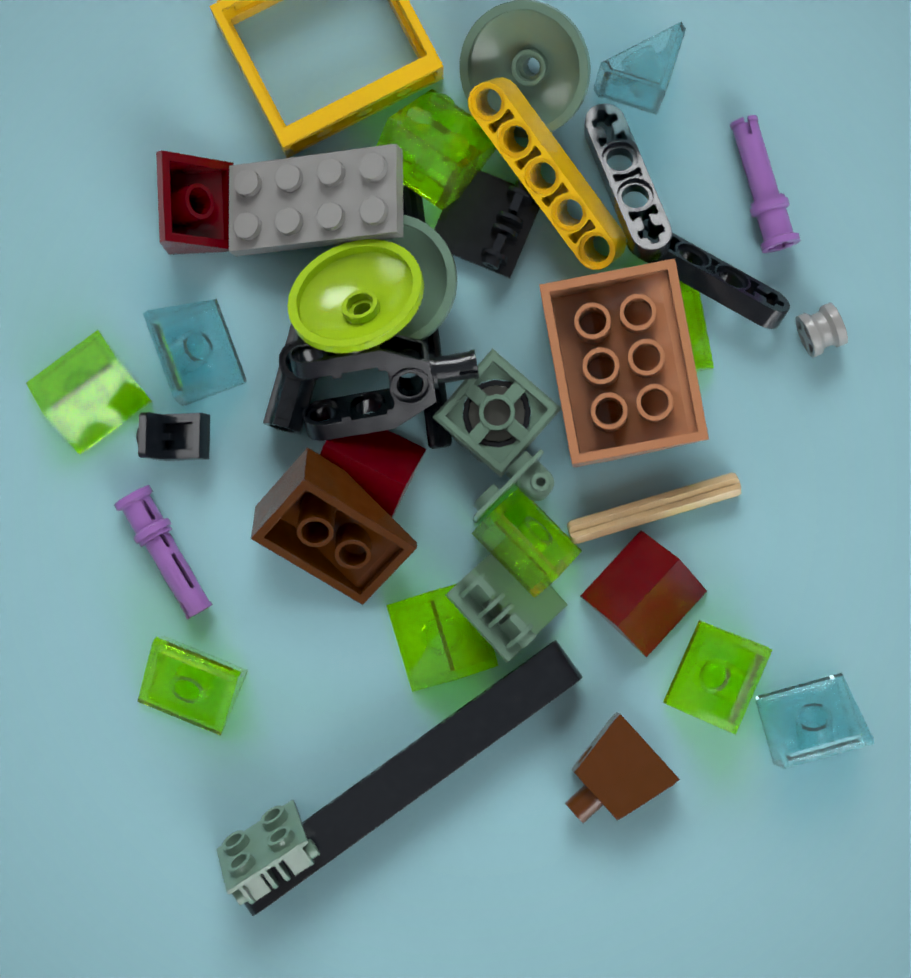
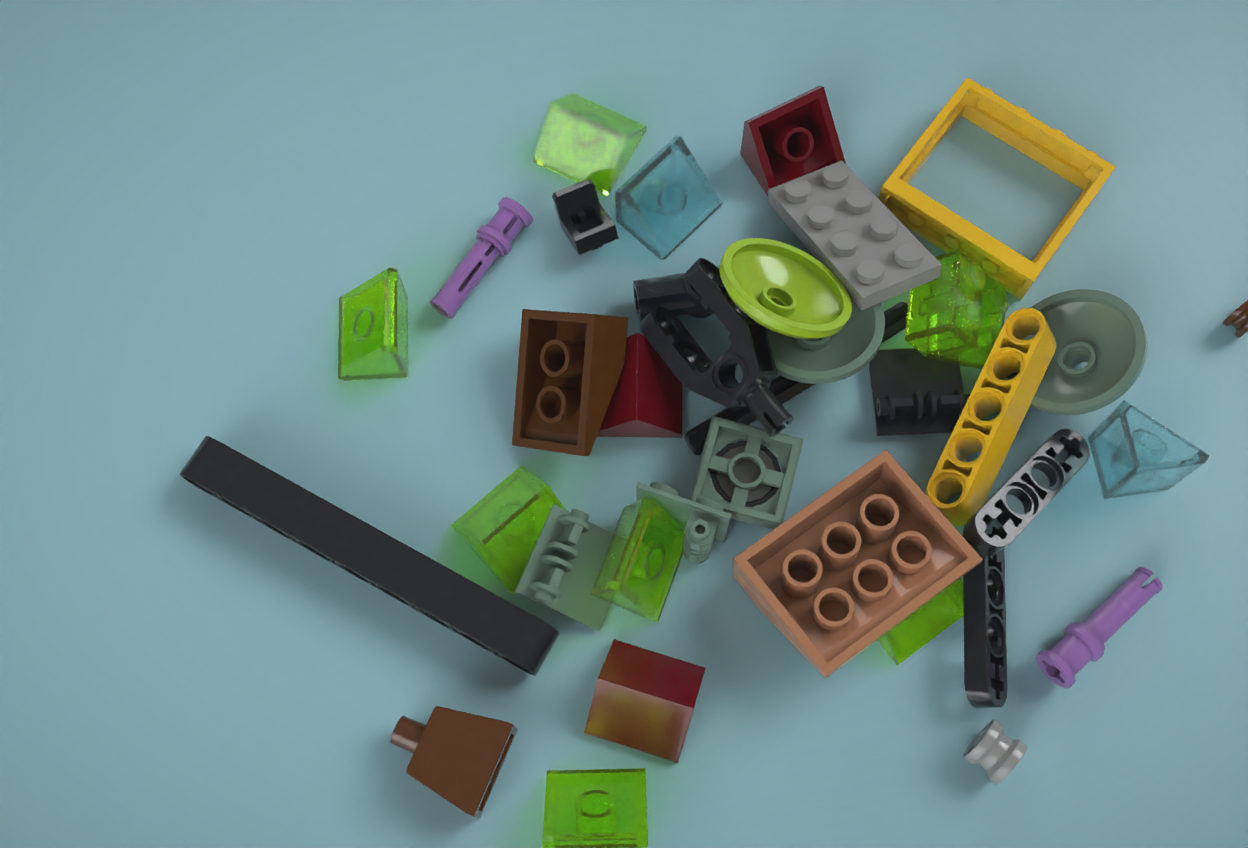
camera: 70 degrees right, 15 degrees down
(262, 846) = (237, 456): sand green hinge -> none
(654, 508) = (734, 671): tan axle -> none

